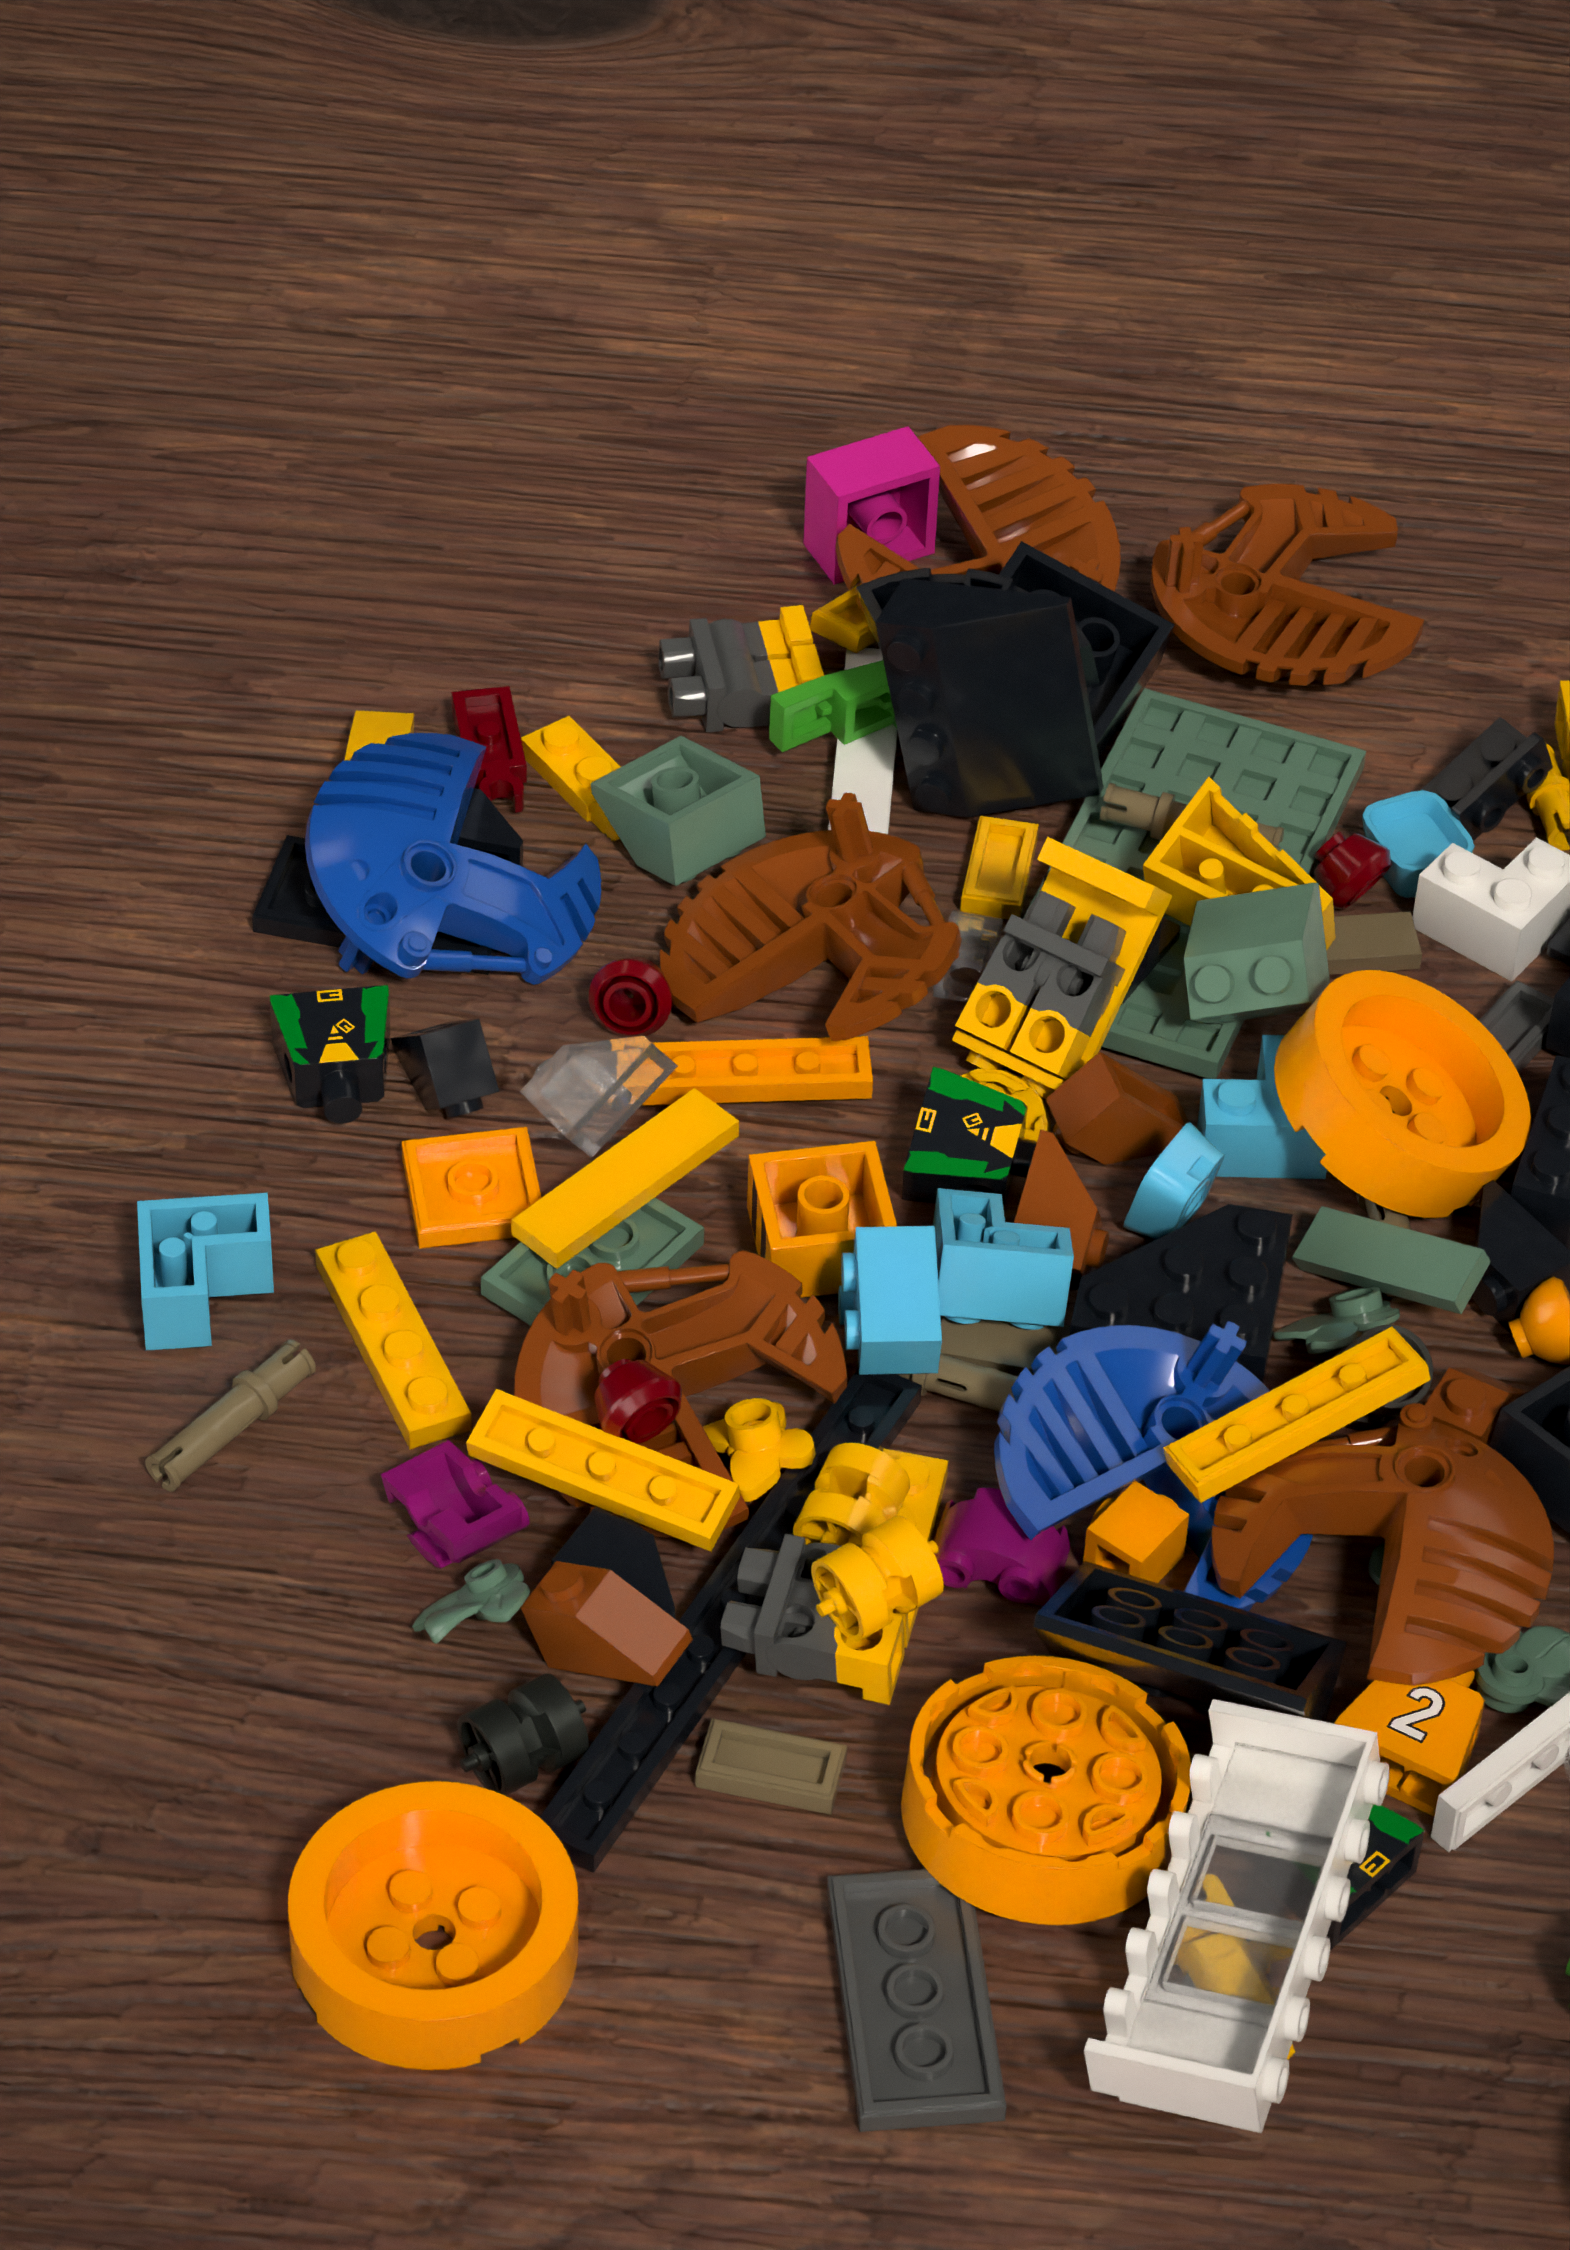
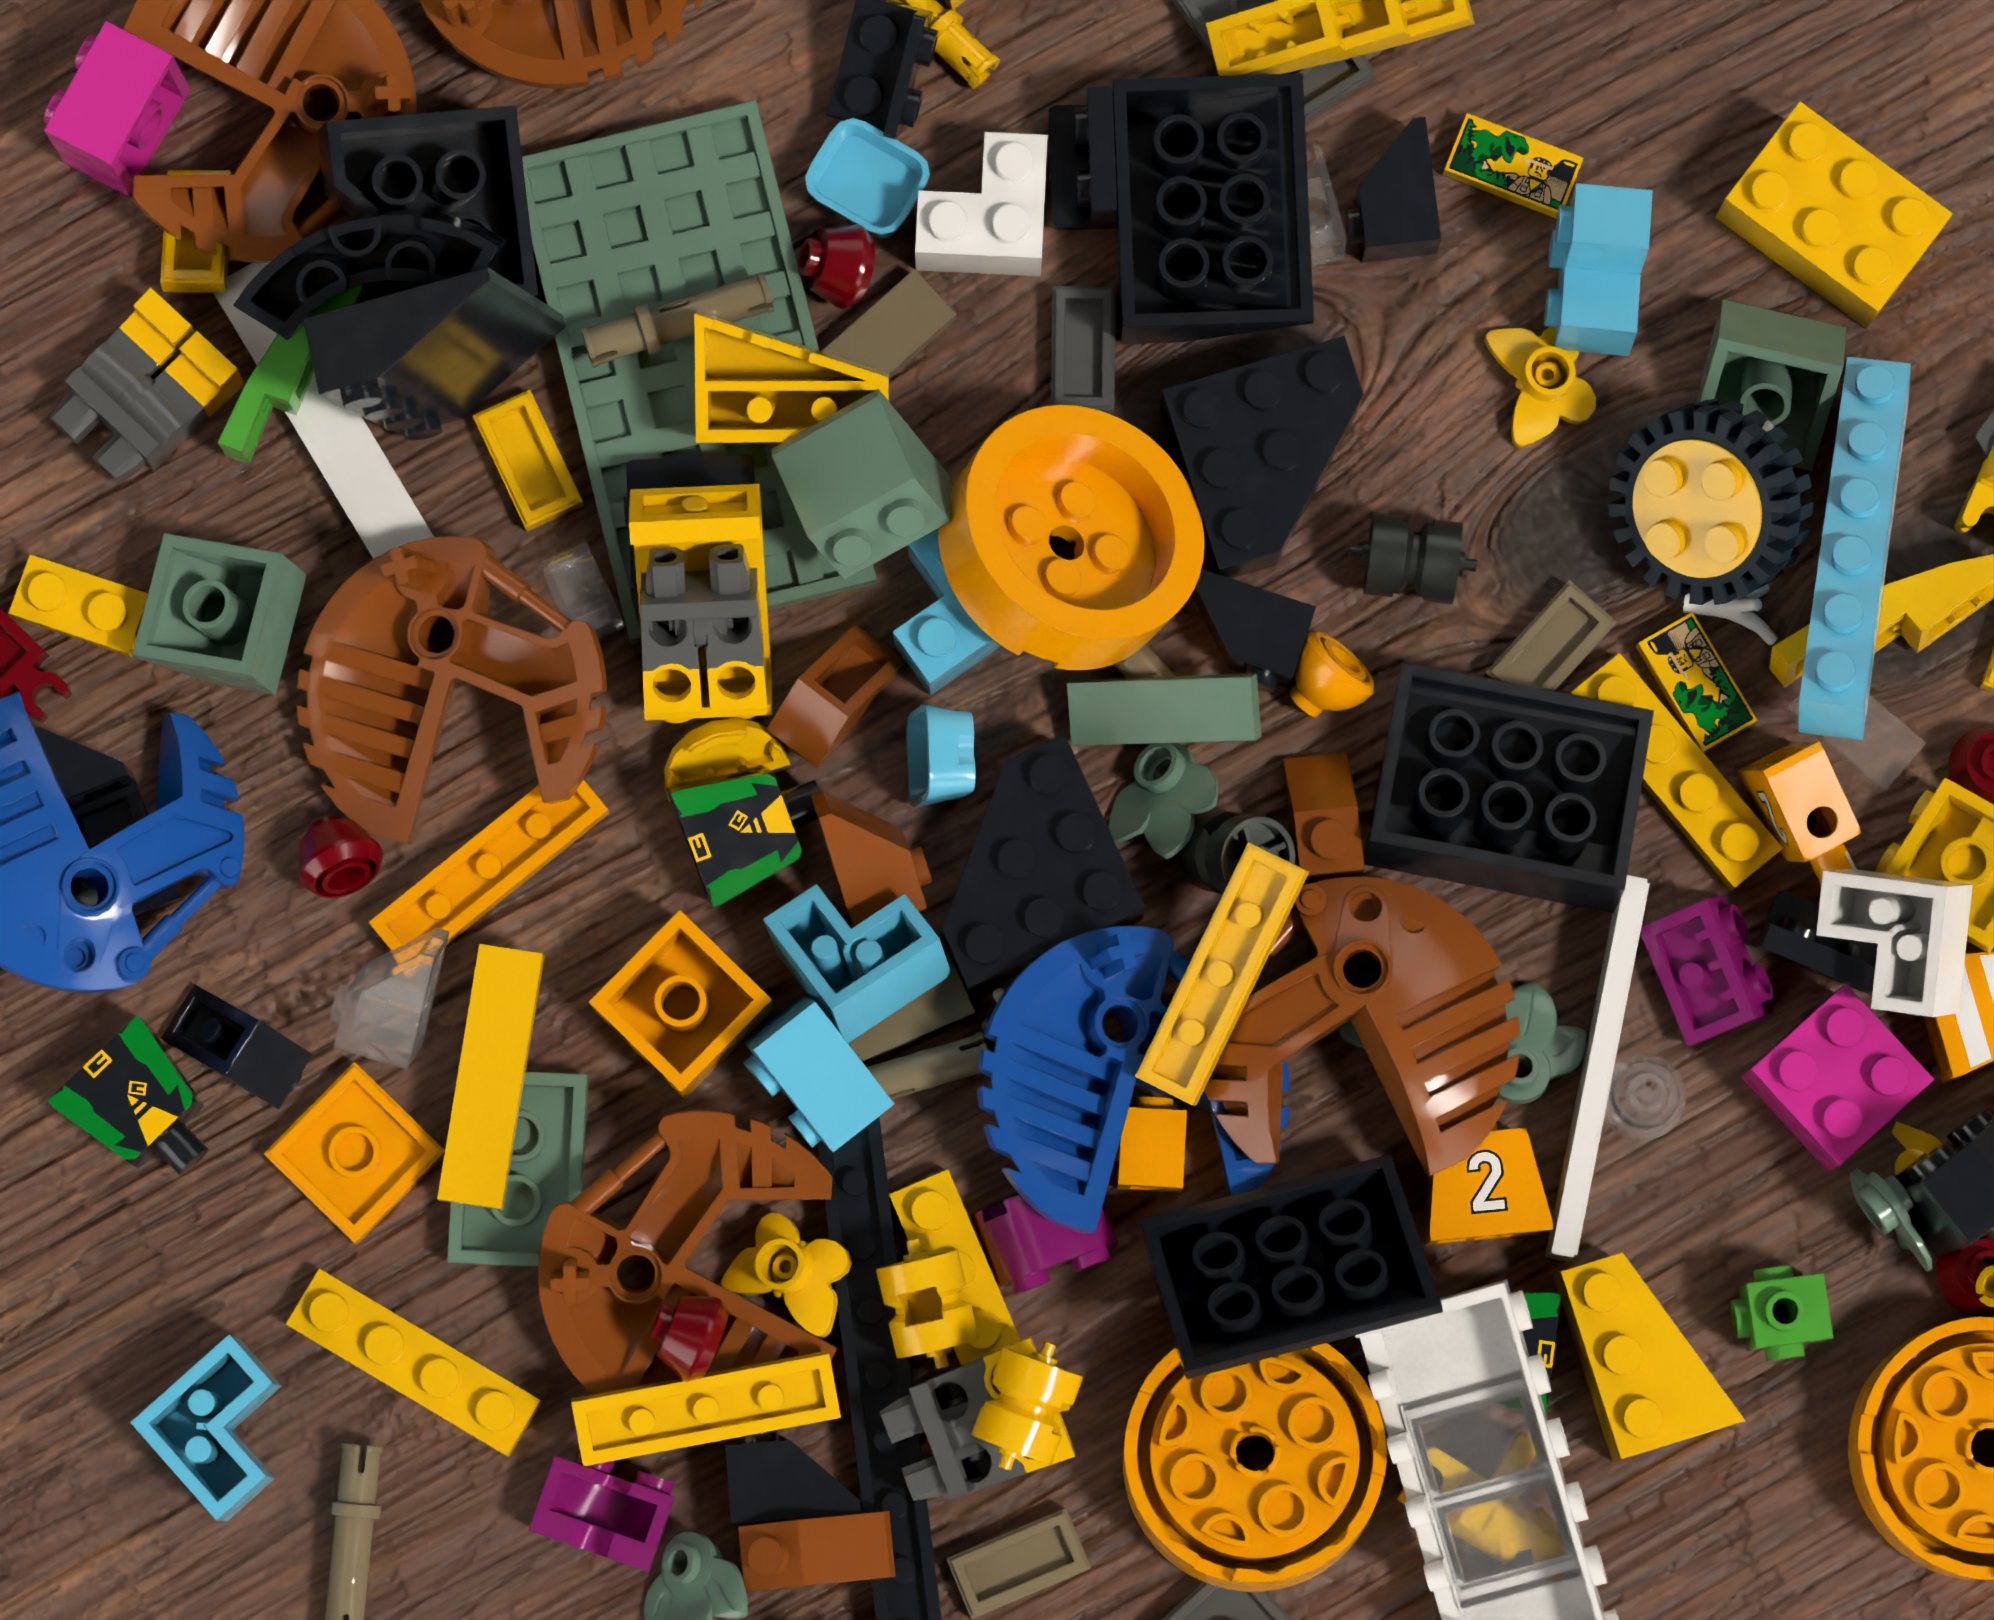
camera: 35 degrees left, 35 degrees up
(1457, 1942) = (1637, 1361): none -> yellow wedge

